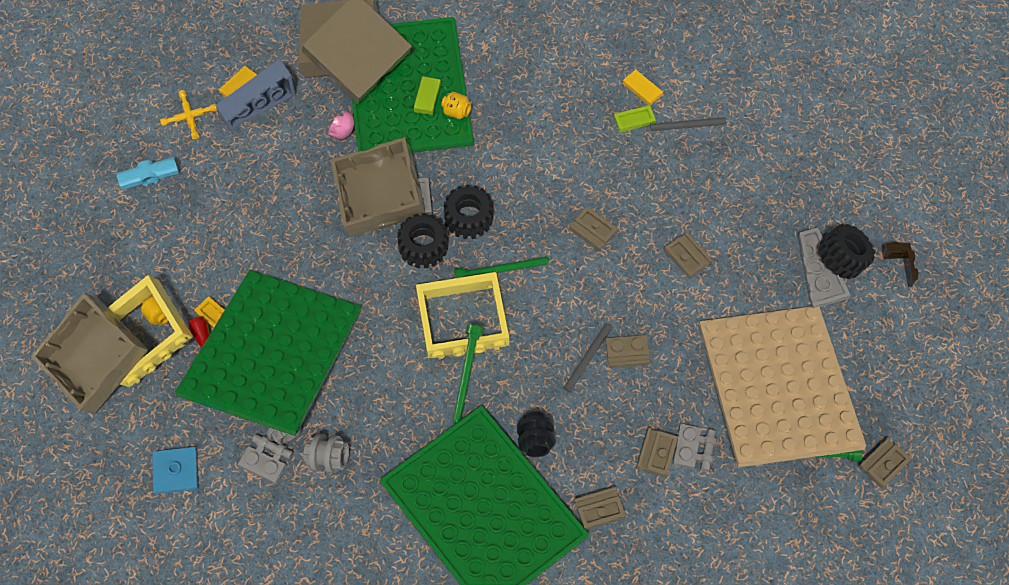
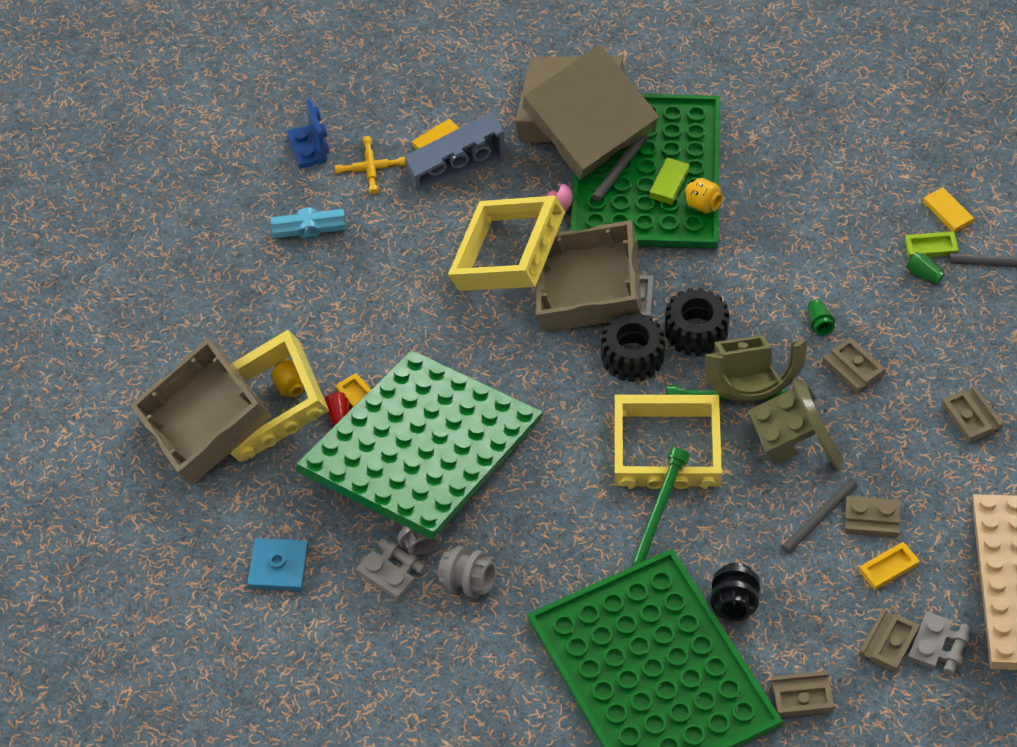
camera: 15 degrees right, 10 degrees down
(136, 101) = (309, 141): none -> blue bracket
(334, 175) = (527, 273): none -> light yellow window
(385, 92) = (618, 168): none -> dark grey bar
(511, 247) = (743, 368): none -> olive piece
(554, 286) = (790, 420): none -> olive piece
(562, 194) = (820, 318): none -> green cone
(633, 139) = (924, 268): none -> green cone
(646, 390) = (889, 566): none -> yellow tile

